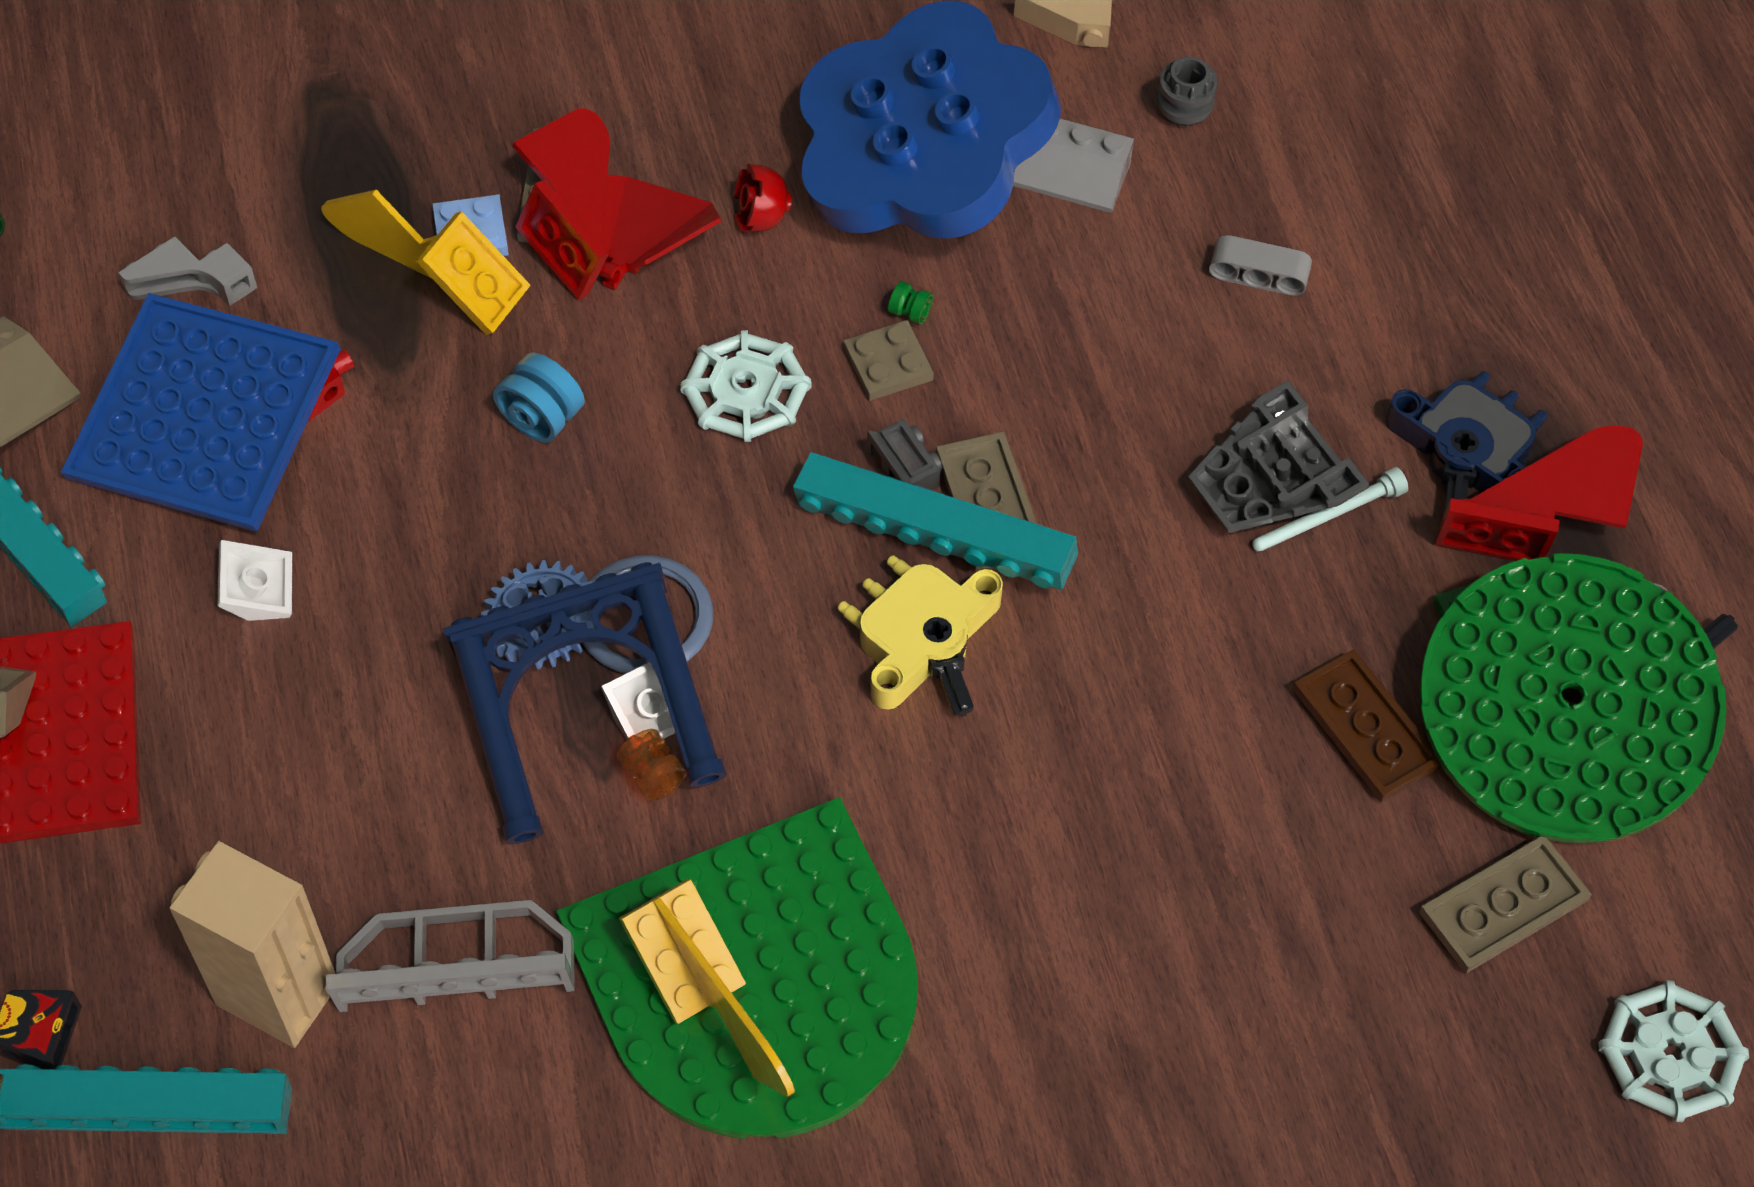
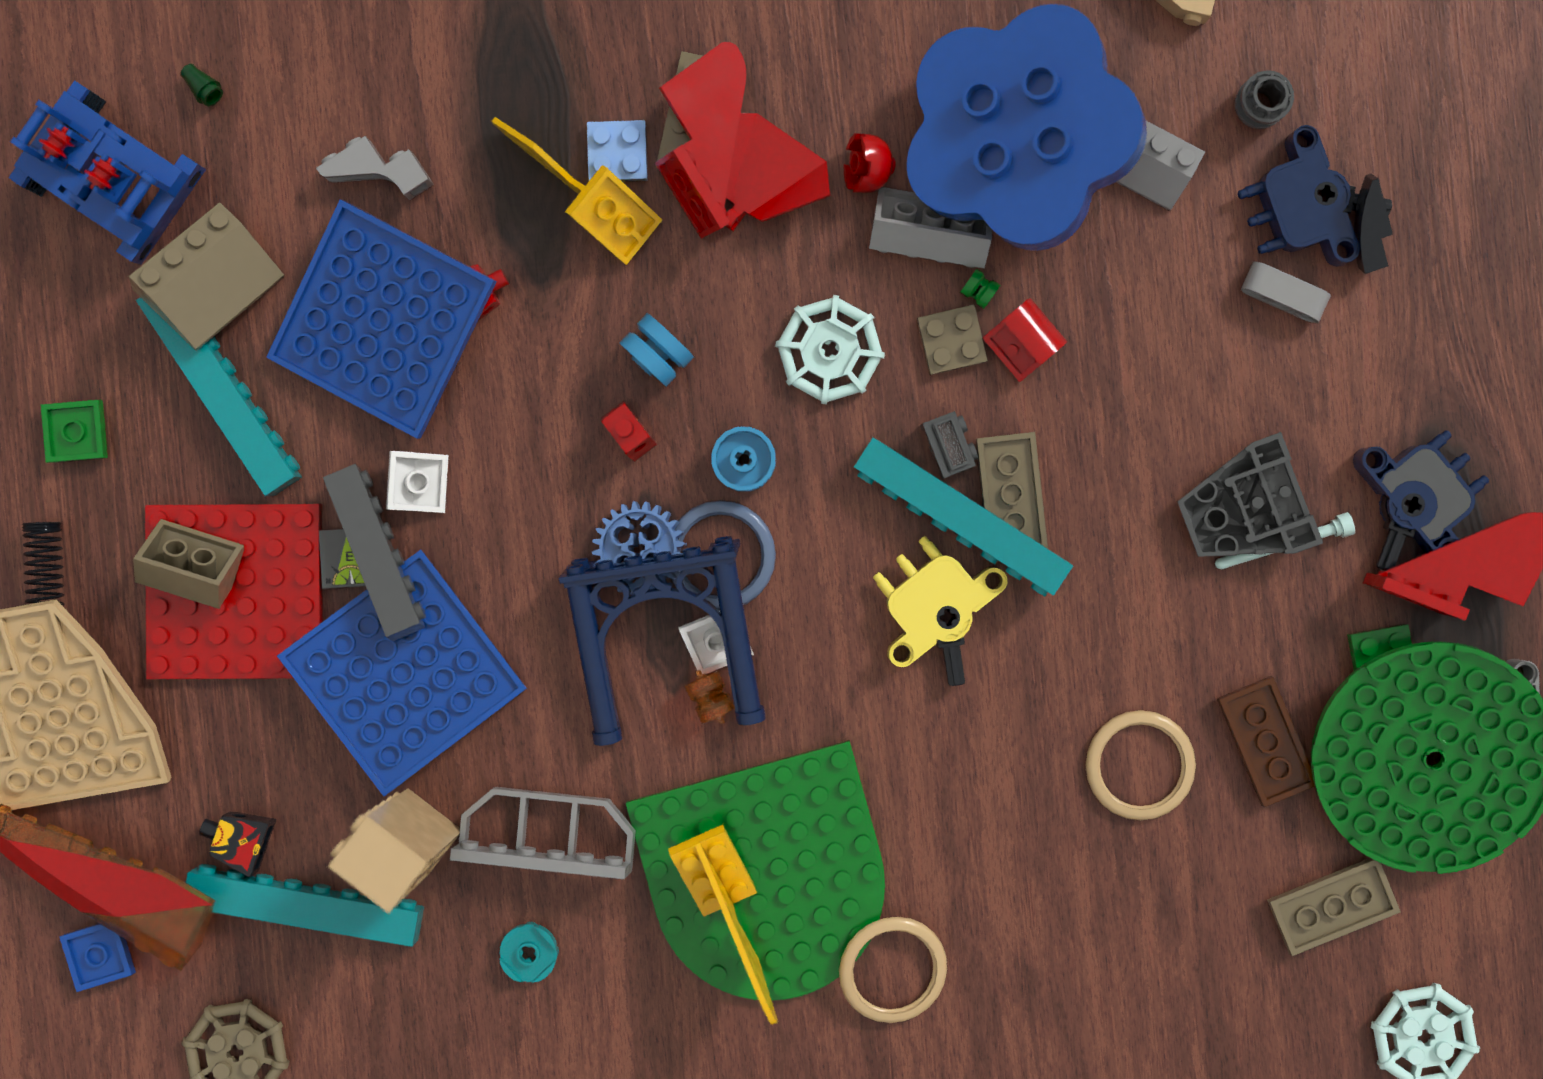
camera: 10 degrees right, 30 degrees up
(173, 678) = (337, 561): none -> tile
(207, 652) = (374, 552): none -> dark grey brick
(249, 769) = (404, 697): none -> blue plate
(440, 1097) = (528, 969): none -> teal plate
(509, 480) = (628, 431): none -> red torso
(658, 501) = (733, 445): none -> dark azure wheel
(843, 255) = (913, 229): none -> light grey slope
(896, 1102) = (867, 933): none -> tan wedge
(971, 344) = (1024, 339): none -> red brick
(1205, 831) = (1123, 809): none -> tan wedge
(1265, 181) = (1295, 208): none -> dark blue piece
(1336, 185) = (1371, 226): none -> black slope

